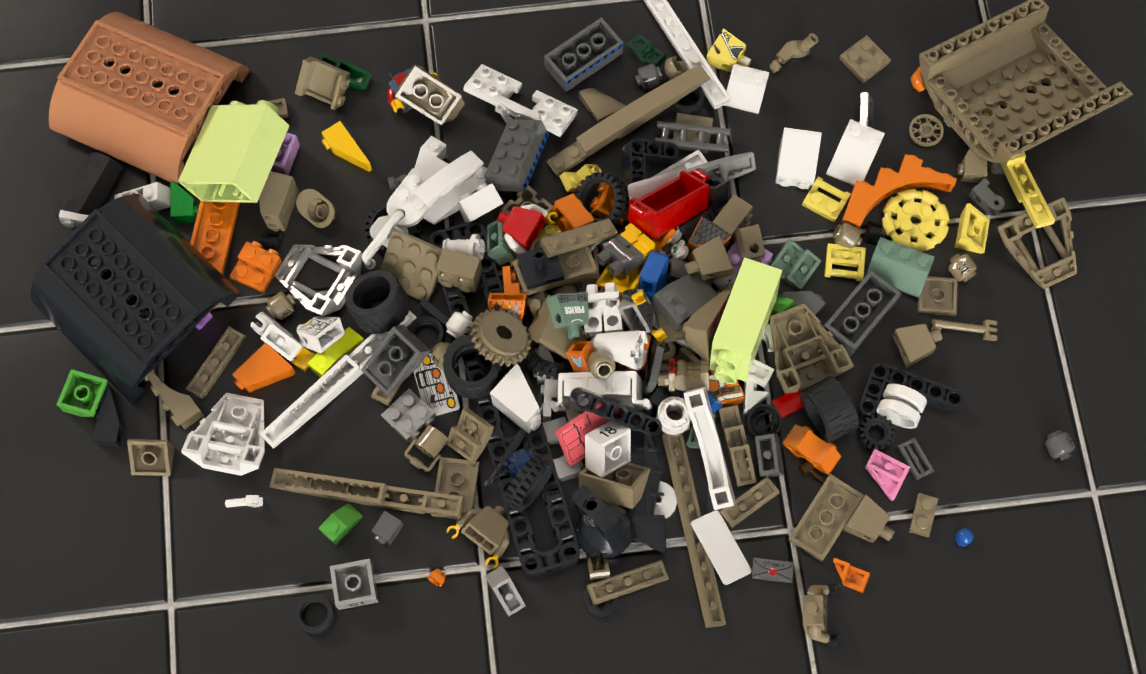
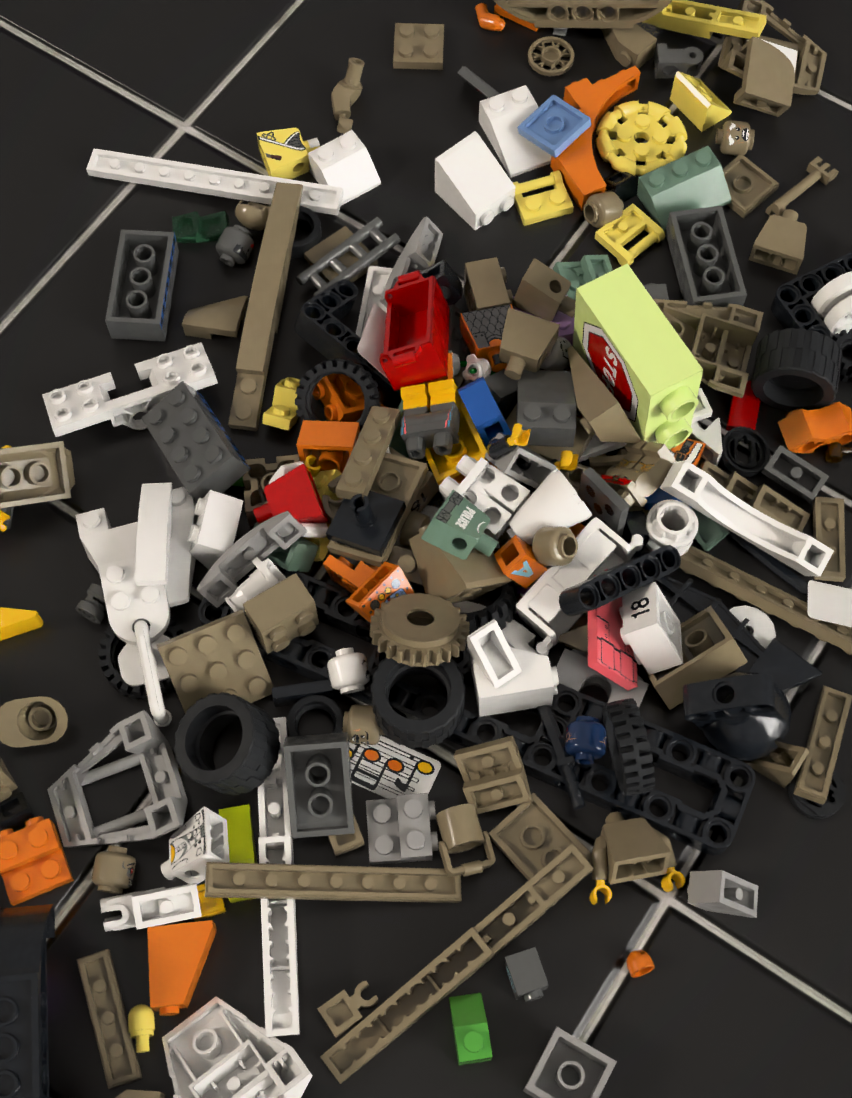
camera: 50 degrees left, 5 degrees down
(223, 379) = (141, 1026): none -> light yellow cylinder
(302, 460) = (342, 1011): none -> dark tan plate
(353, 405) = (331, 883): none -> dark tan tile
(465, 227) = (236, 561): none -> light grey slope
(514, 380) = (493, 654): none -> white slope
(870, 169) = (554, 126): none -> medium blue plate
(1019, 252) = (767, 77): none -> dark tan panel

